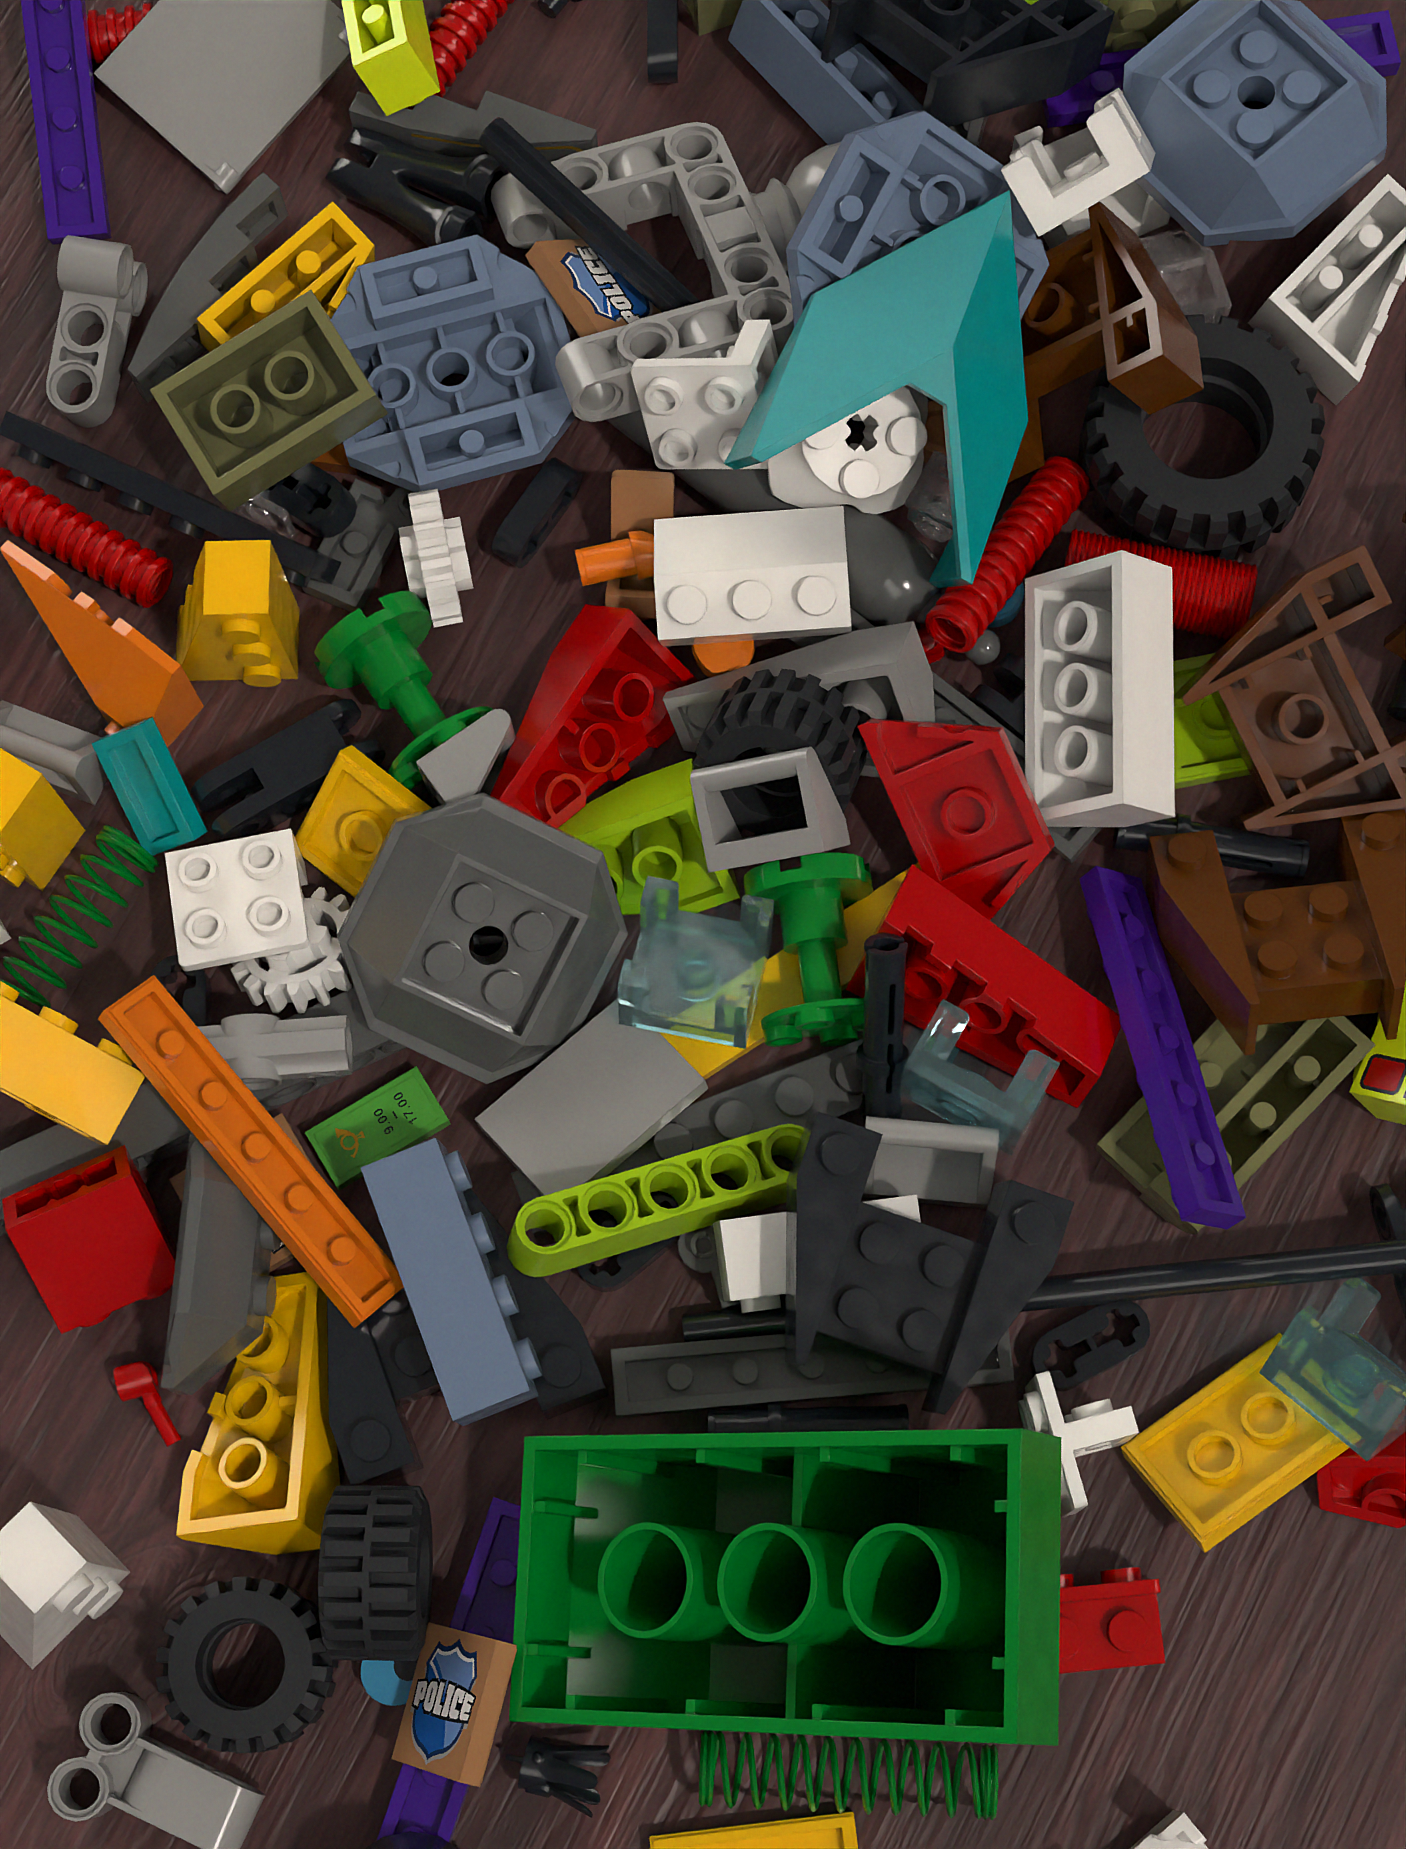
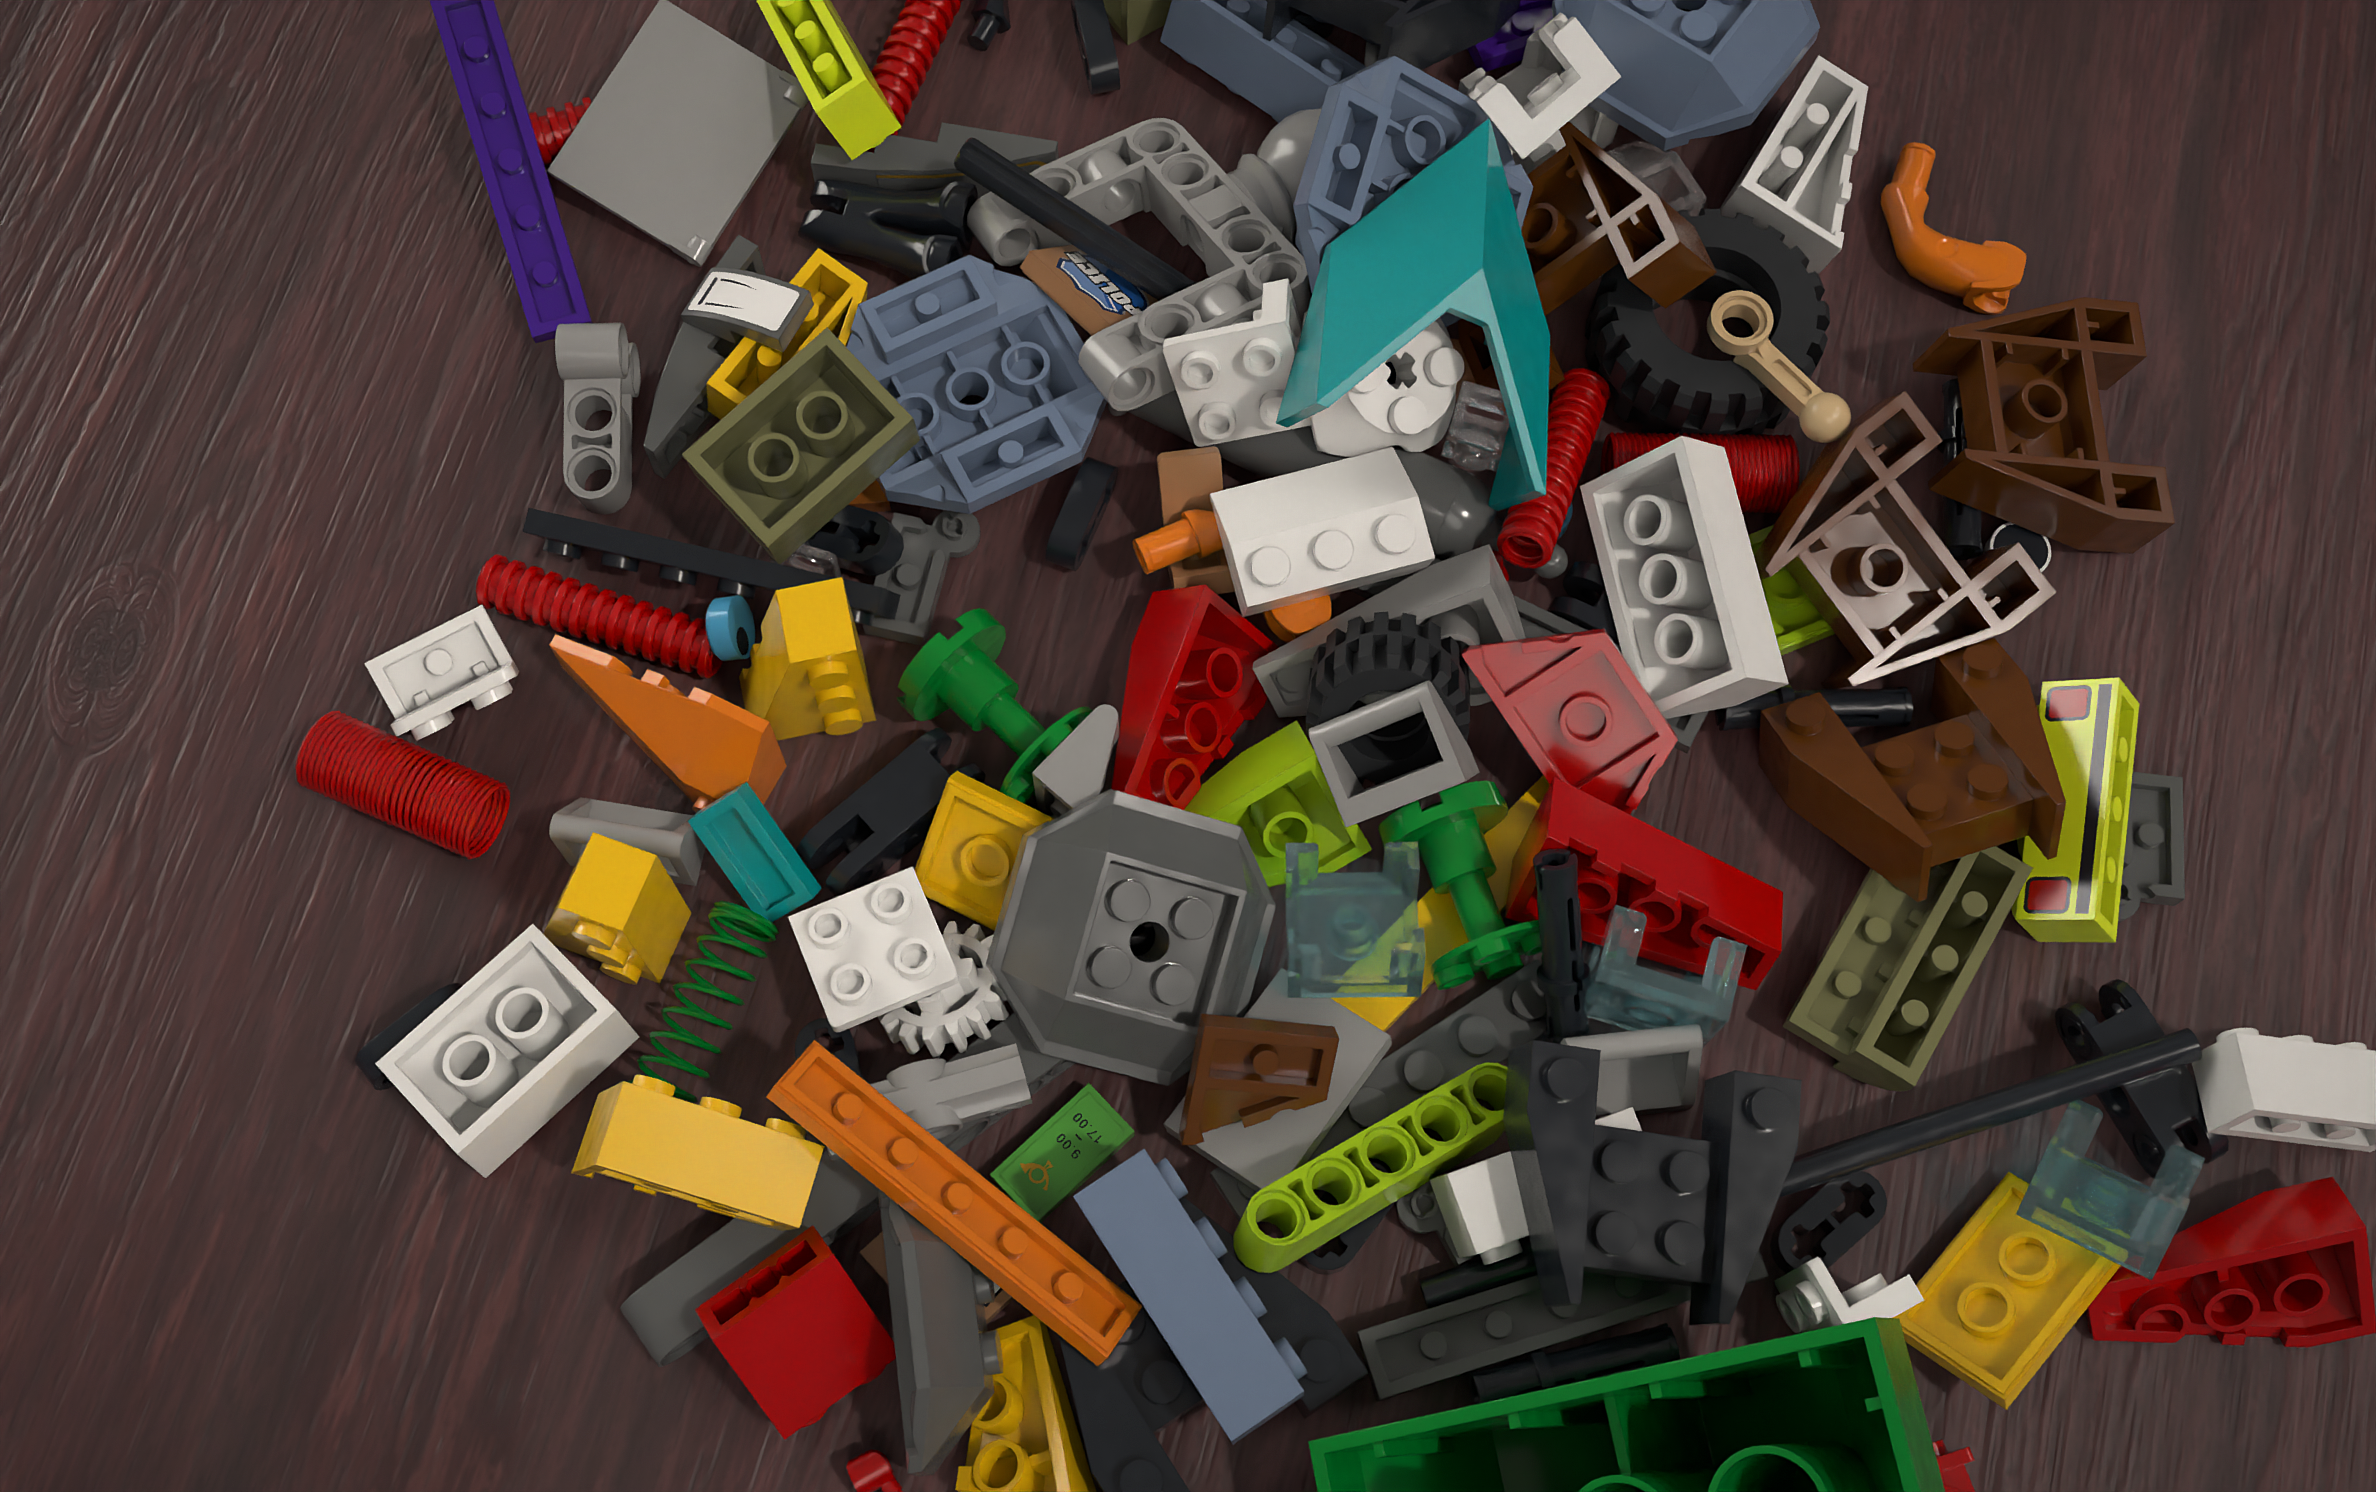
camera: 20 degrees left, 5 degrees down
(171, 563) = (730, 628): none -> dark azure tile
(253, 249) = (748, 305): none -> slope
(435, 557) = (997, 571): white gear -> none
(563, 1087) = (1253, 1071): none -> reddish brown wing
(1162, 1050) = (1840, 926): dark purple plate -> none
(1280, 552) = (1821, 414): none -> tan piece

